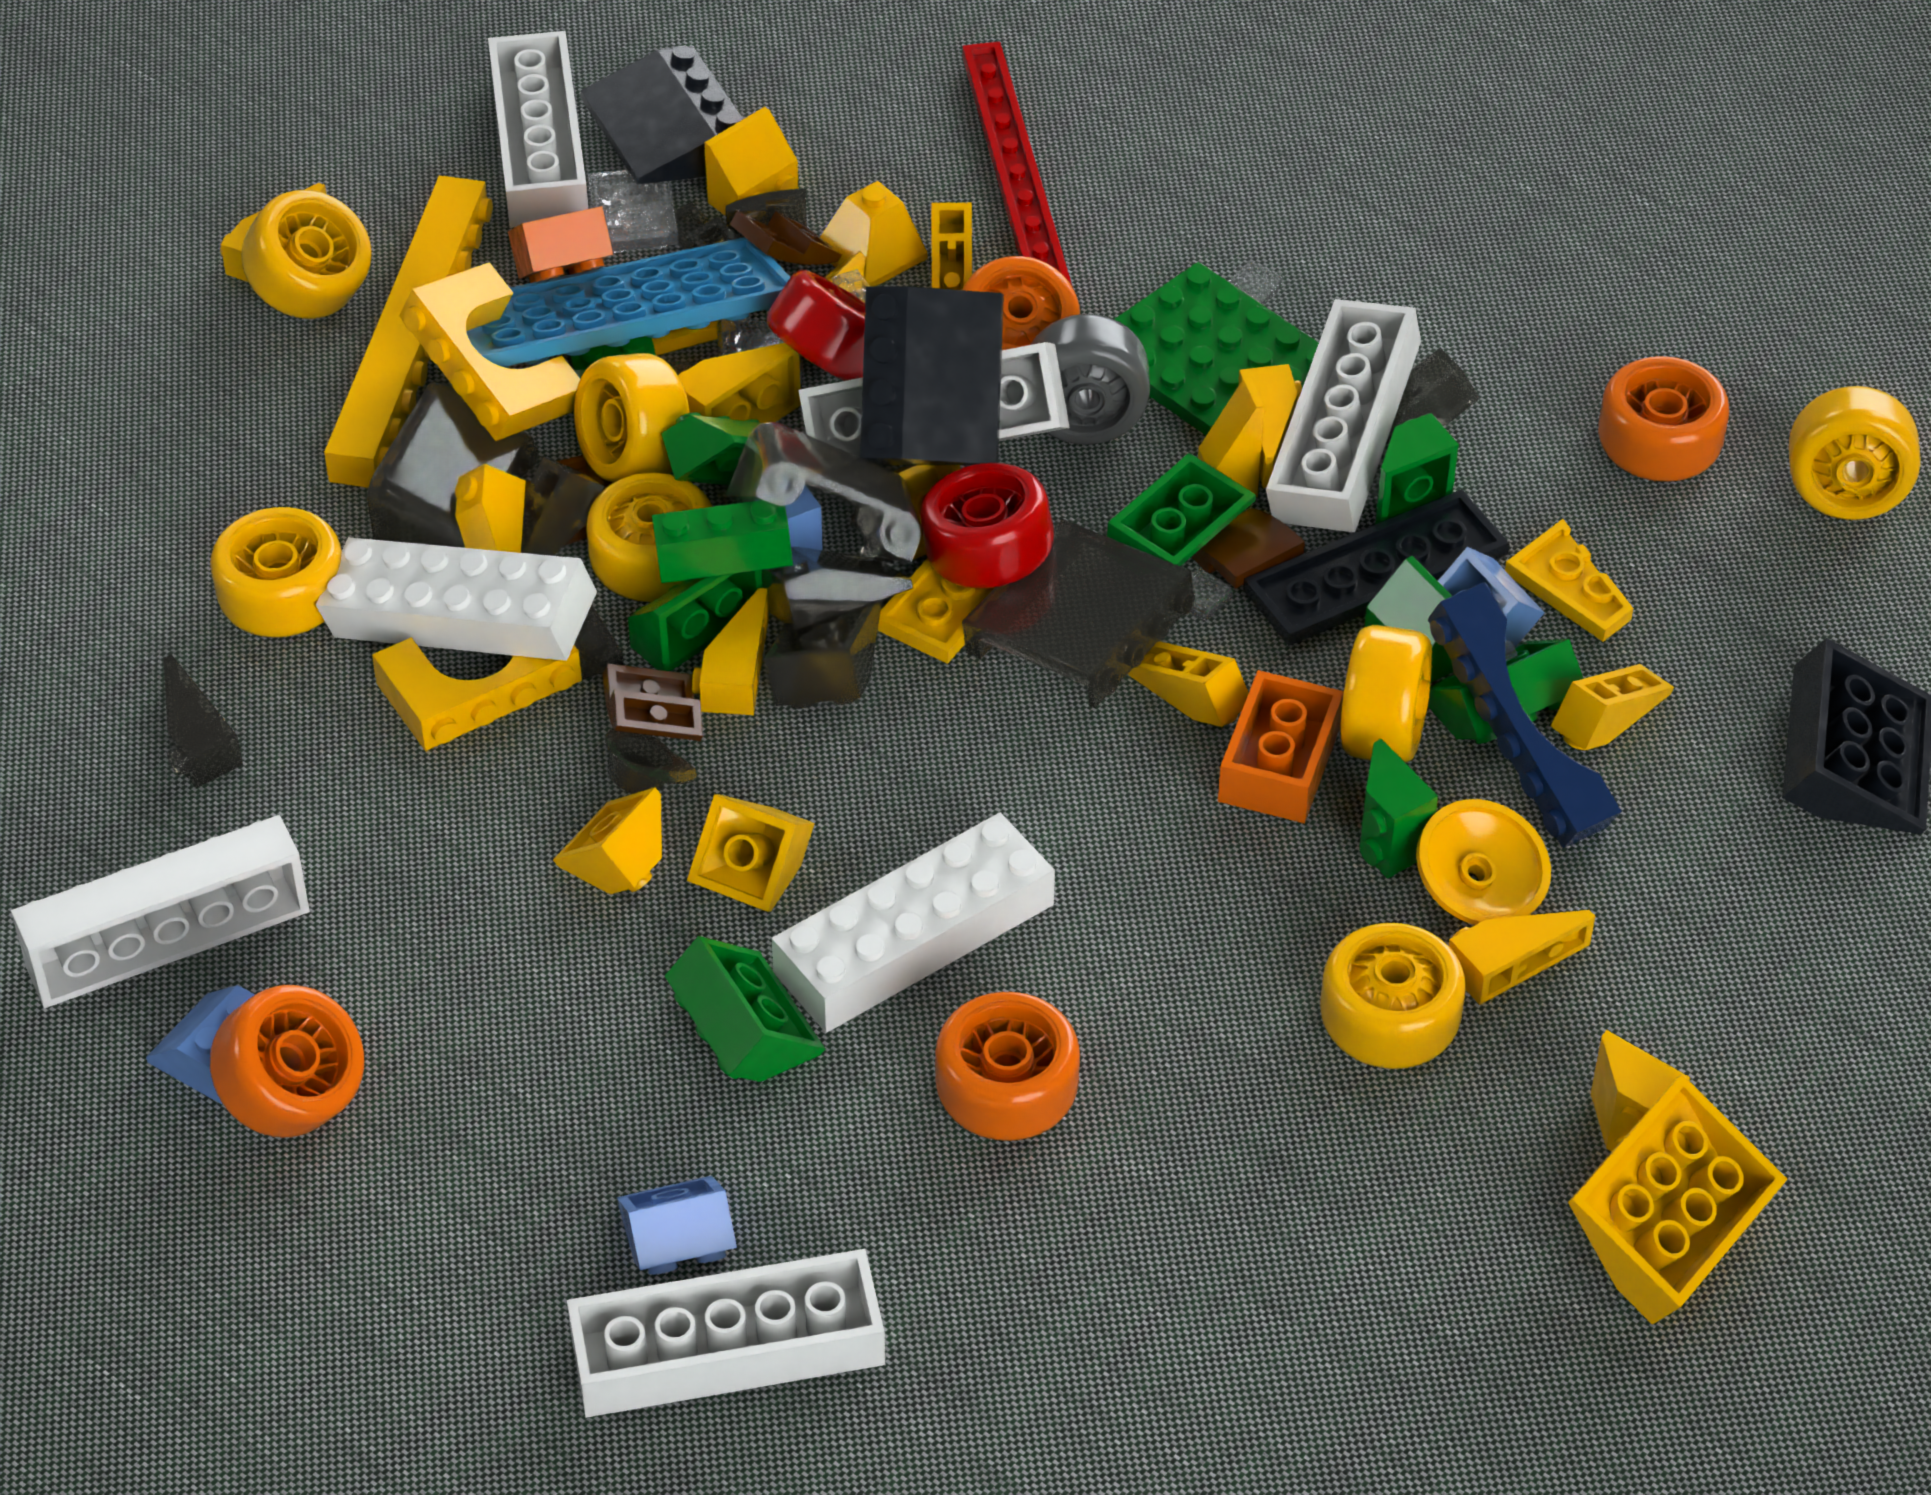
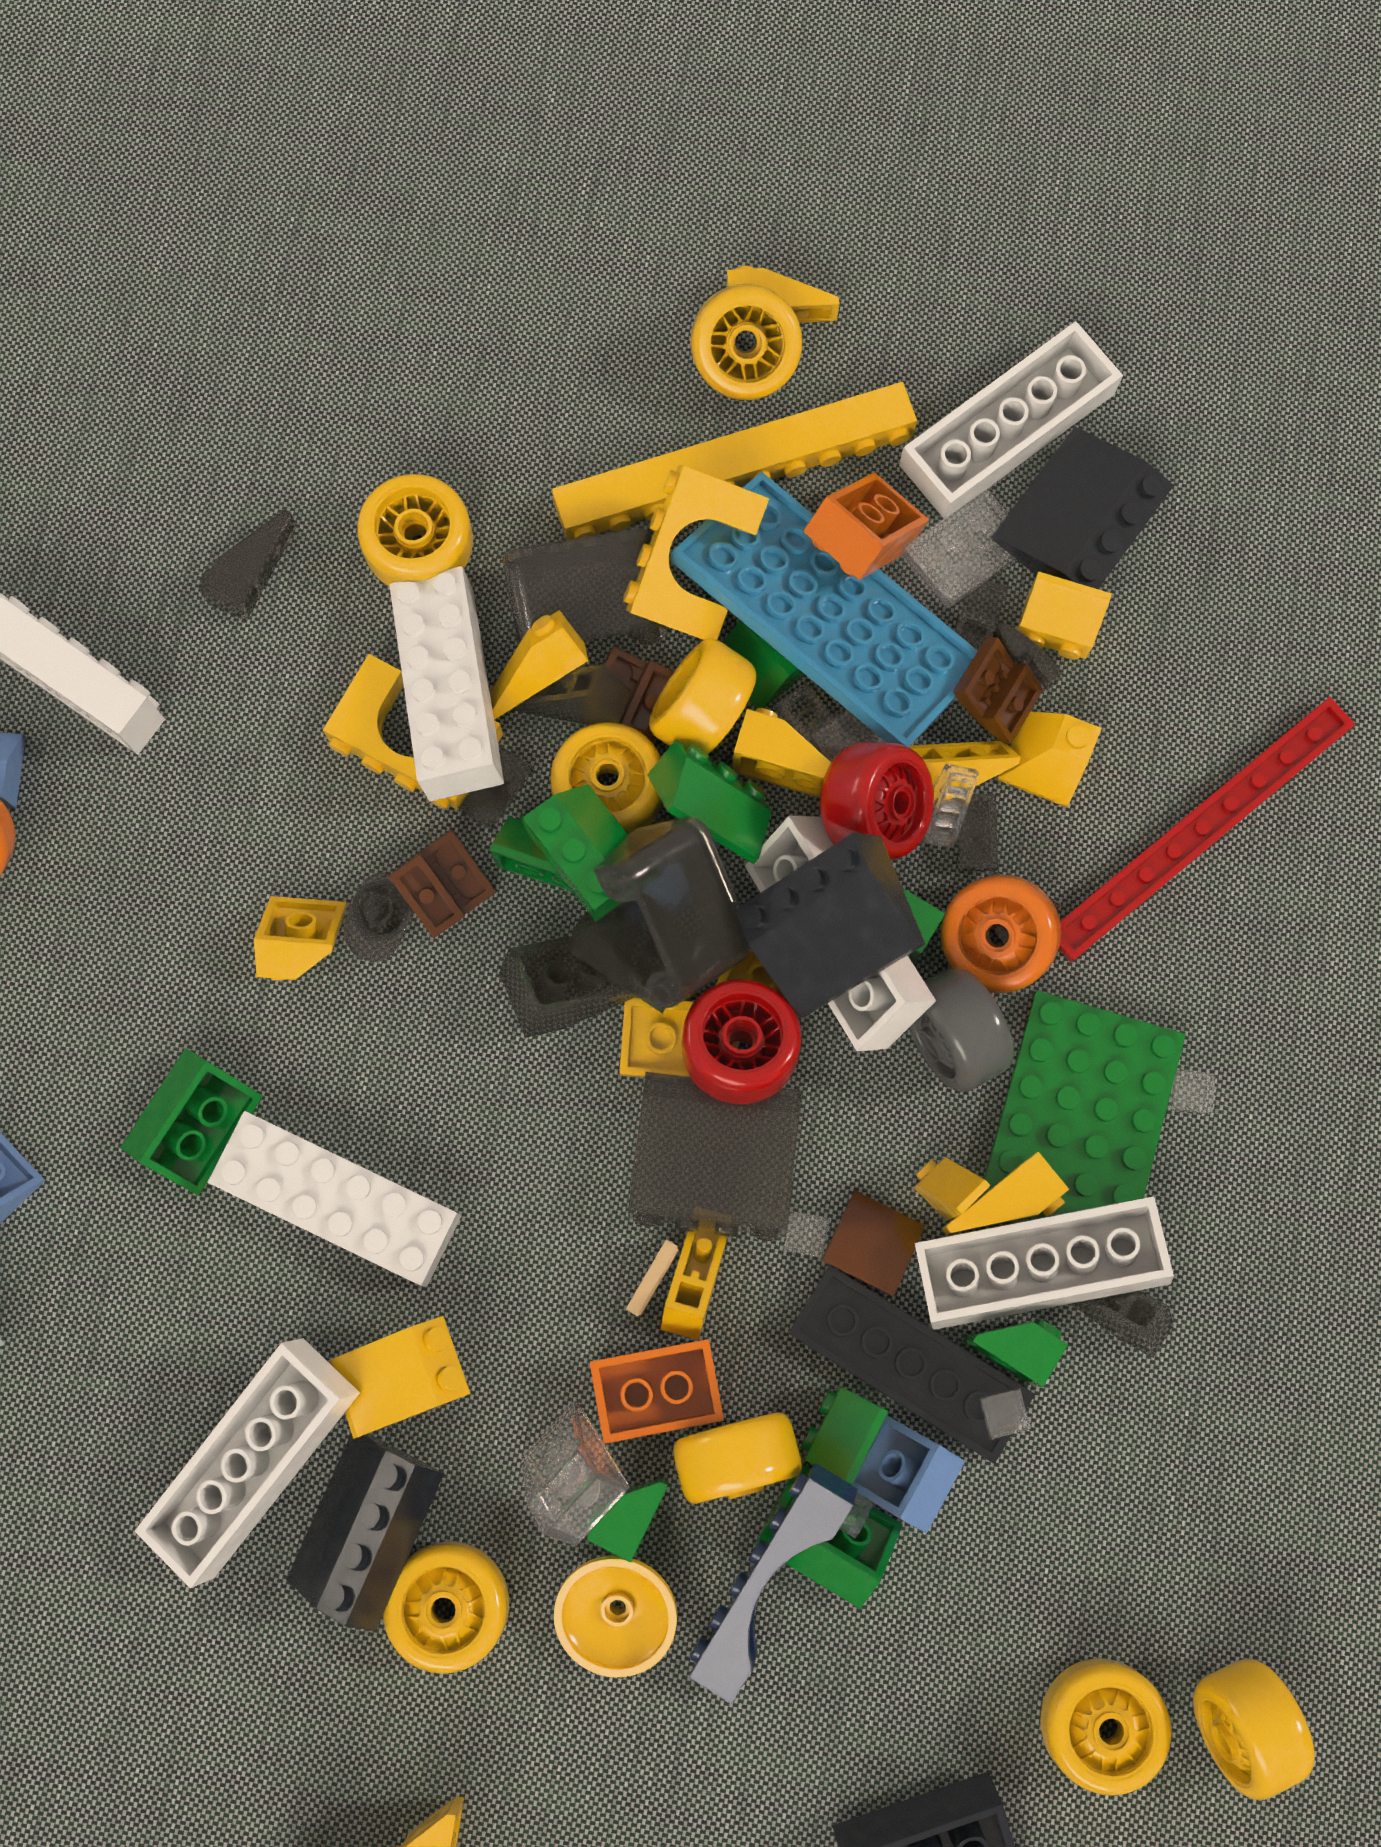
camera: 60 degrees right, 30 degrees up
(734, 661) = (520, 918): yellow slope -> none
(749, 851) = (342, 1040): yellow slope -> none
(951, 244) = (1058, 835): yellow slope -> none
(1007, 1066) = (193, 1338): orange wheel -> none
(1137, 911) = (401, 1376): none -> yellow slope
(1143, 1072) = (246, 1462): none -> white brick
(1167, 713) = (652, 1278): none -> tan tile
(1180, 511) = (854, 1185): green slope -> none
(1266, 1020) = (363, 1531): none -> black slope
(1320, 819) = (570, 1477): none -> clear slope
(1466, 510) = (1005, 1413): none -> clear tile
(1514, 948) = (547, 1672): yellow slope -> none
(1569, 582) = (984, 1533): yellow wing -> none
(1607, 705) = (861, 1635): yellow slope -> none
(1663, 418) = (1244, 1537): orange wheel -> none
(1797, 562) = (1077, 1707): none -> yellow wheel

